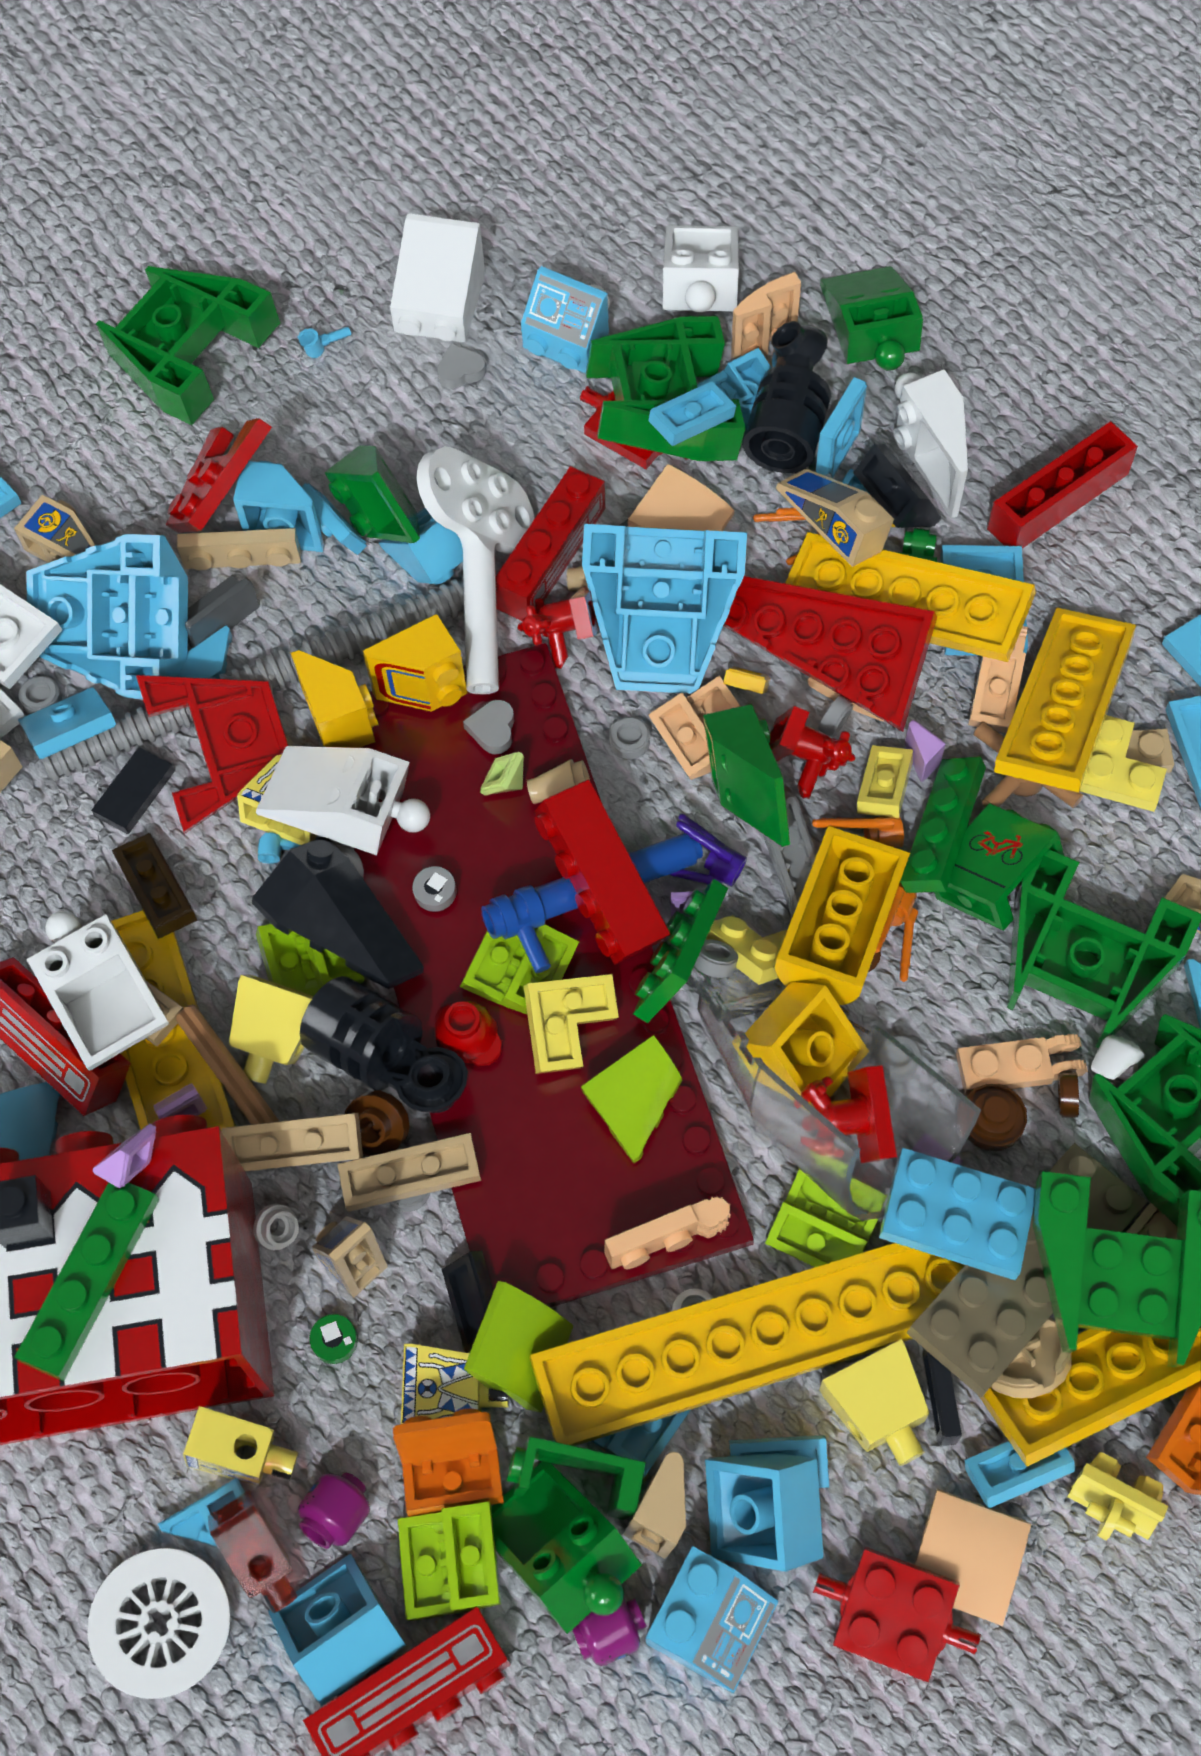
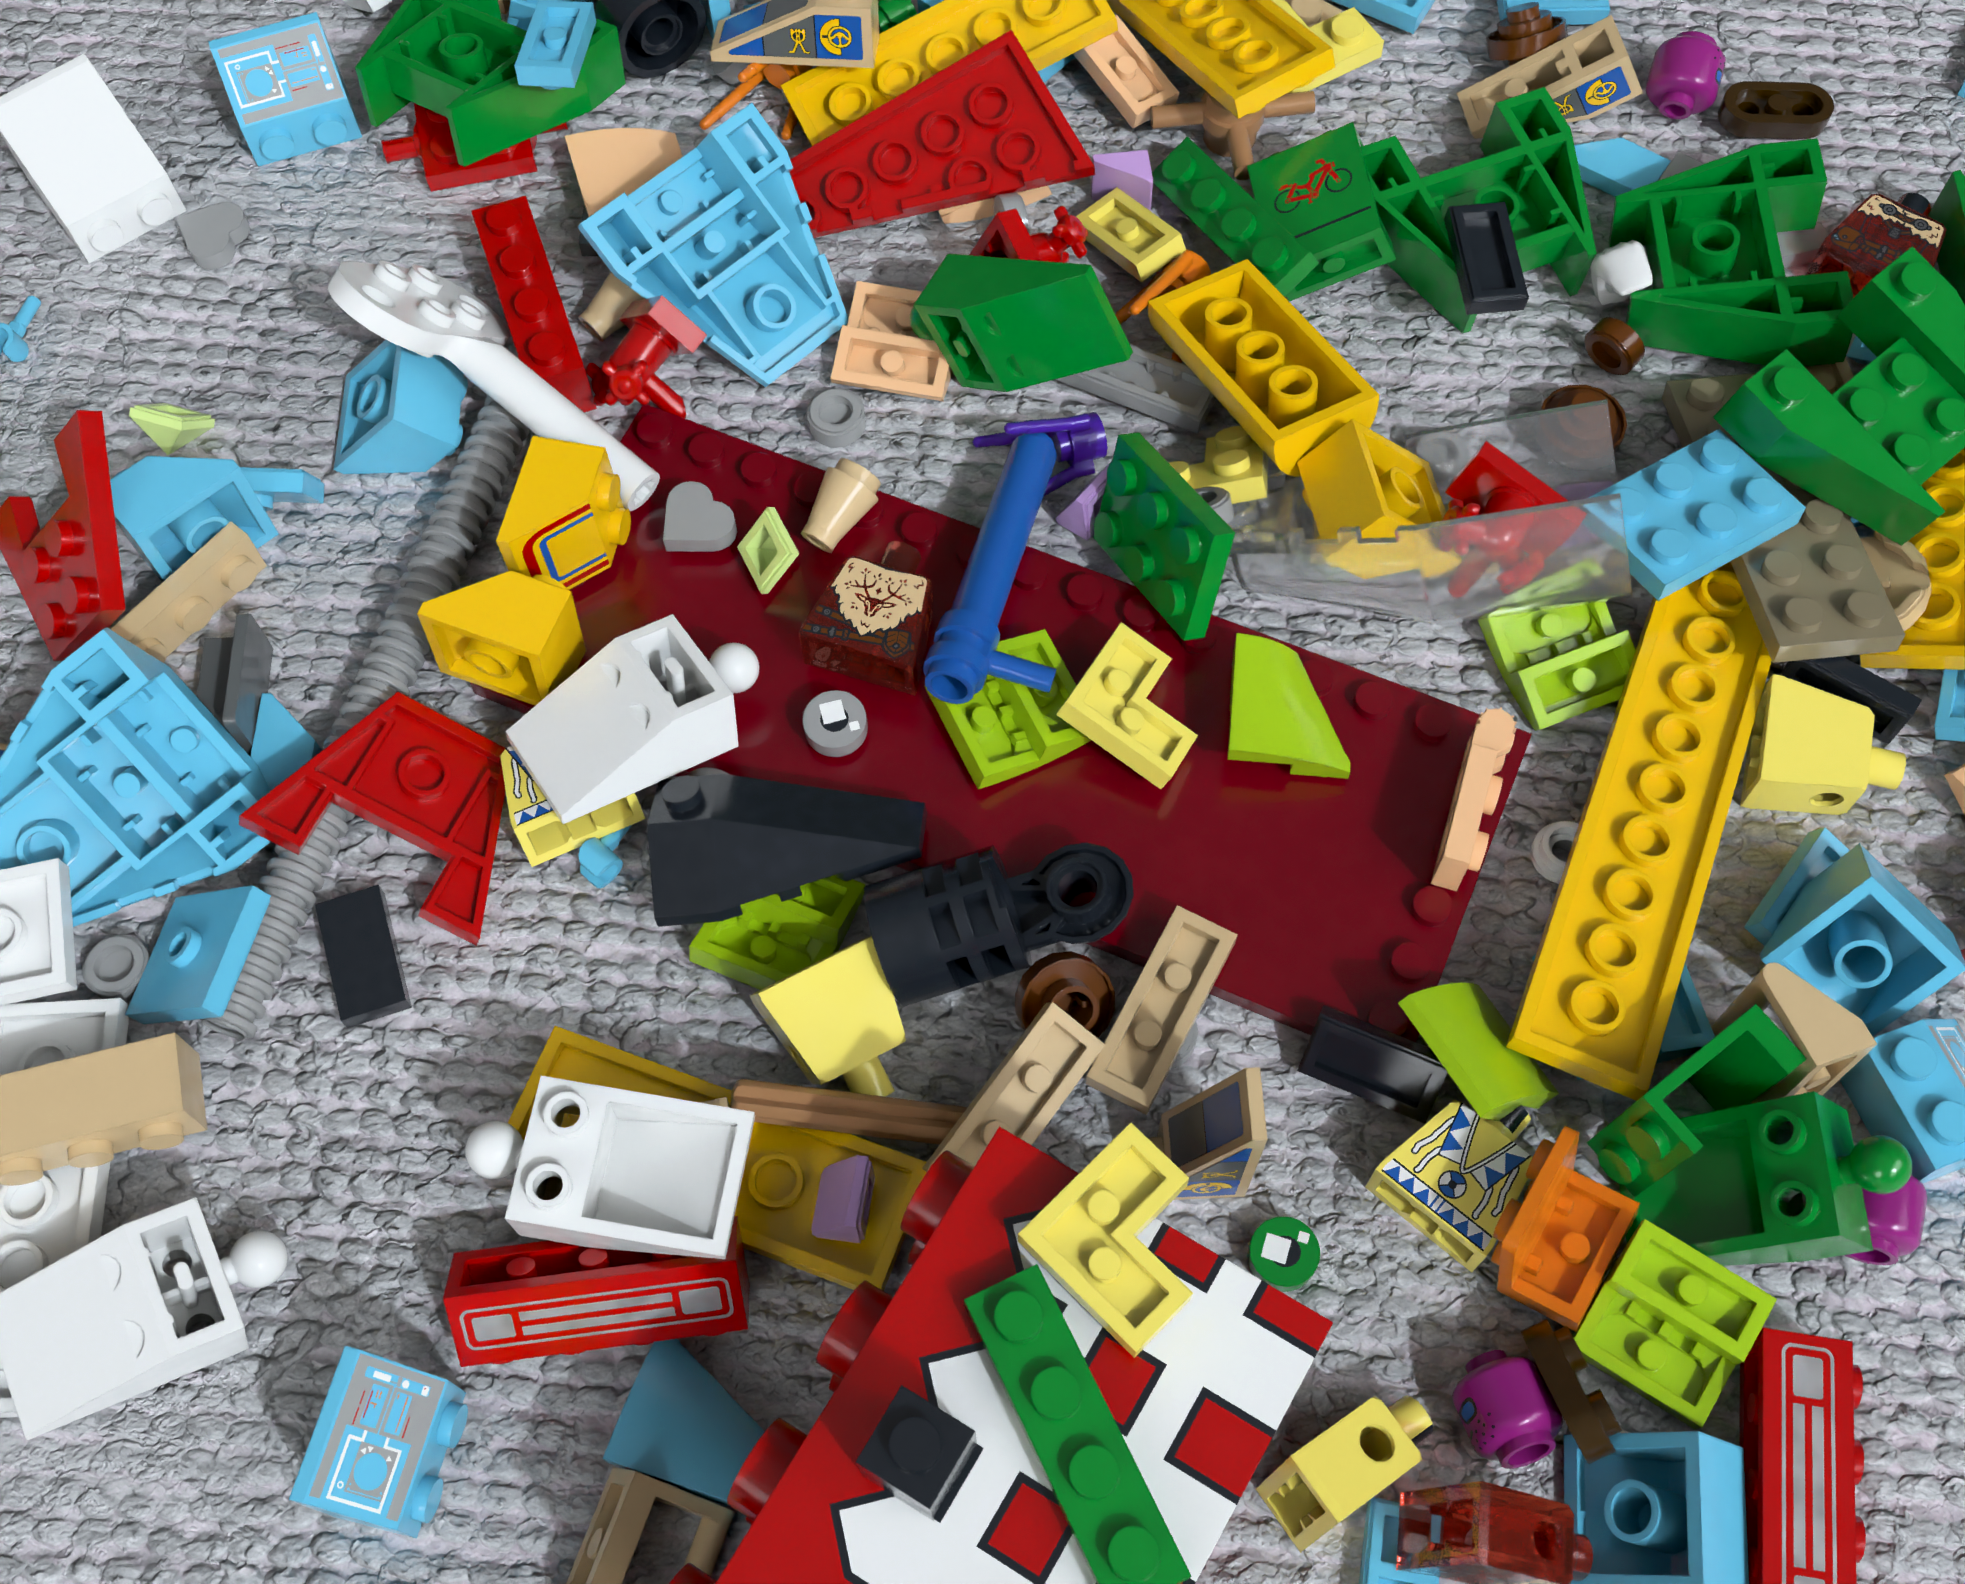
camera: 50 degrees left, 0 degrees up
(127, 1158) = (956, 1260): lavender slope -> none
(154, 885) = (521, 1019): dark brown tile -> none
(188, 1206) = (1093, 1244): none -> light yellow plate
(331, 447) = (170, 424): none -> yellowish green slope
(364, 1530) = (1585, 1414): none -> dark brown plate
(373, 496) = (294, 405): green slope -> none
(468, 1032) = (1038, 820): red piece -> none
(504, 855) = (873, 620): none -> torso
(600, 872) = (1007, 527): red brick -> none
(747, 679) = (889, 260): yellow tile -> none
(1017, 1062) = (1535, 363): light nougat hinge -> none
(1037, 975) = (1486, 258): none -> black tile

